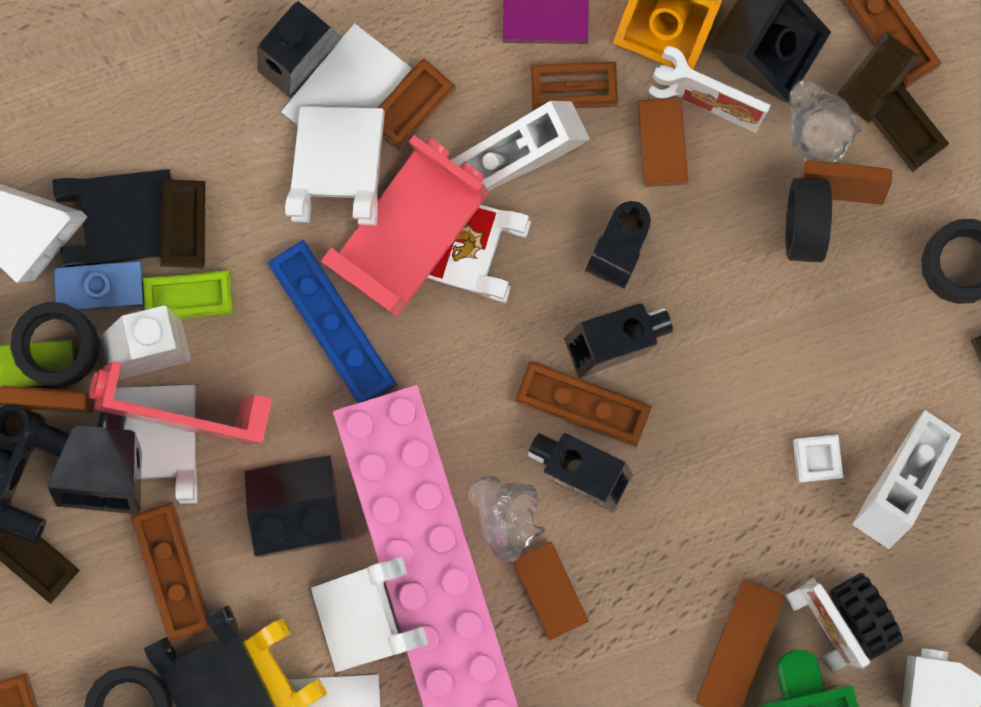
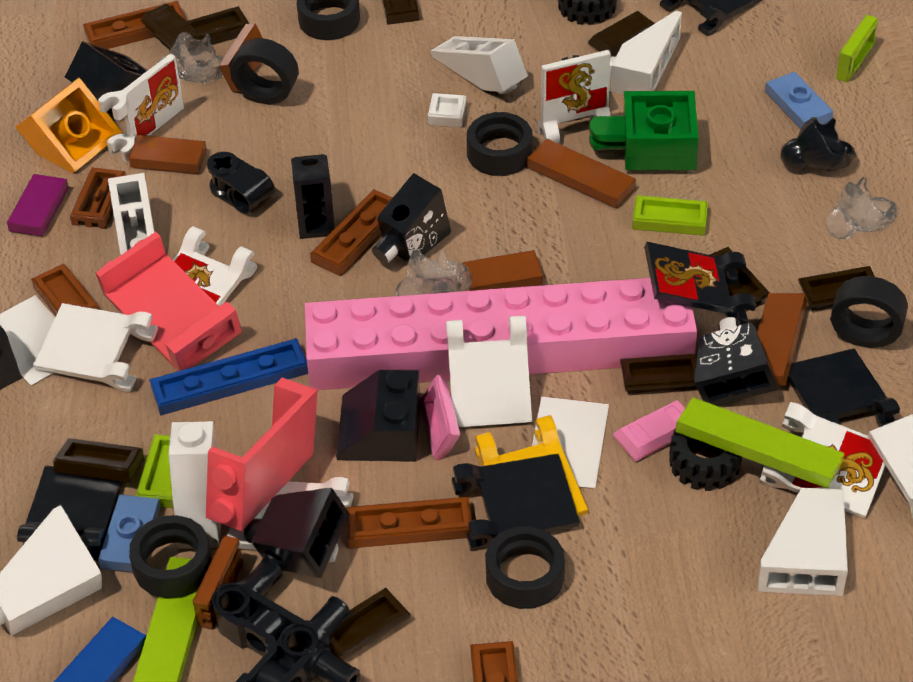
camera: 75 degrees left, 35 degrees down
(309, 572) = (440, 417): none -> bright pink tile
(795, 532) = (499, 126): none -> black tyre

